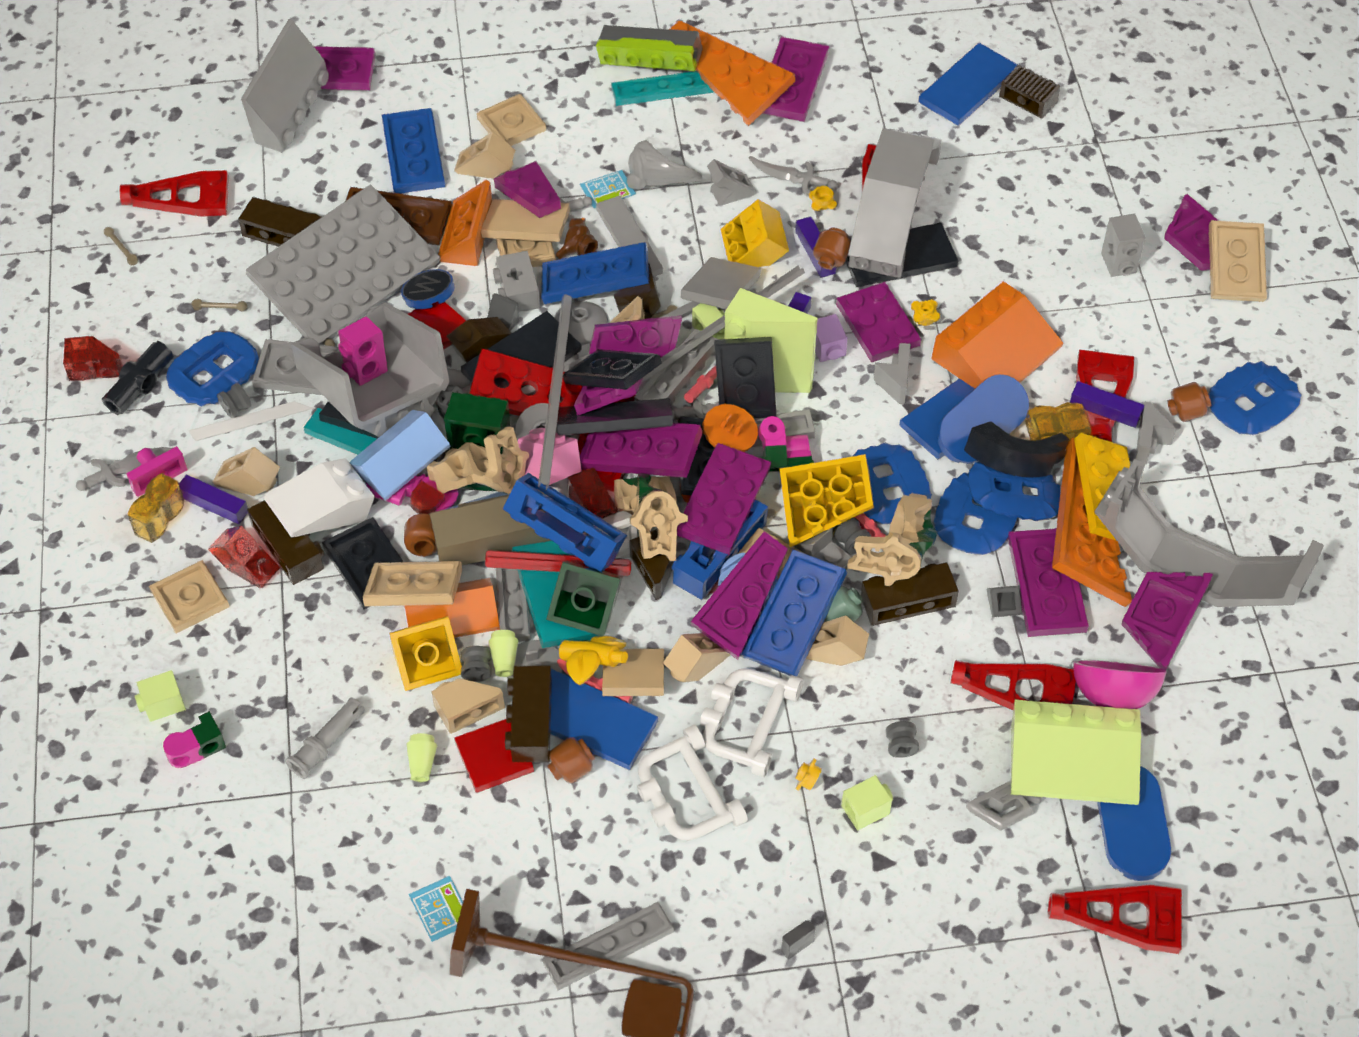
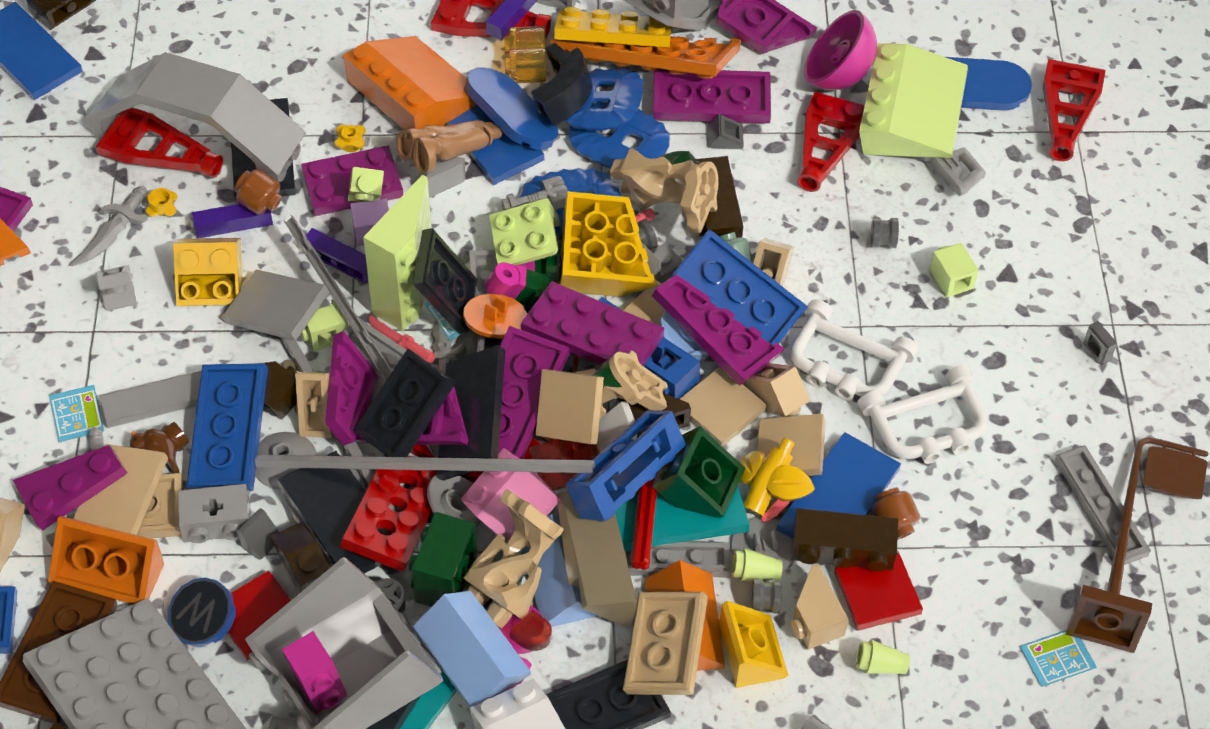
camera: 85 degrees left, 0 degrees up
(419, 535) = (584, 639): dark orange head -> none
(620, 477) = (569, 406): none -> tan tile
(654, 169) = (73, 351): light grey hair -> none
(669, 616) = (723, 406): none -> tan tile
(807, 775) = (926, 312): yellow plate -> none
(825, 438) = (525, 232): none -> yellowish green bracket
(852, 319) = (365, 184): none -> yellowish green brick
(866, 434) = (552, 189): none -> light grey hinge
(918, 369) = (444, 142): none -> medium nougat piece

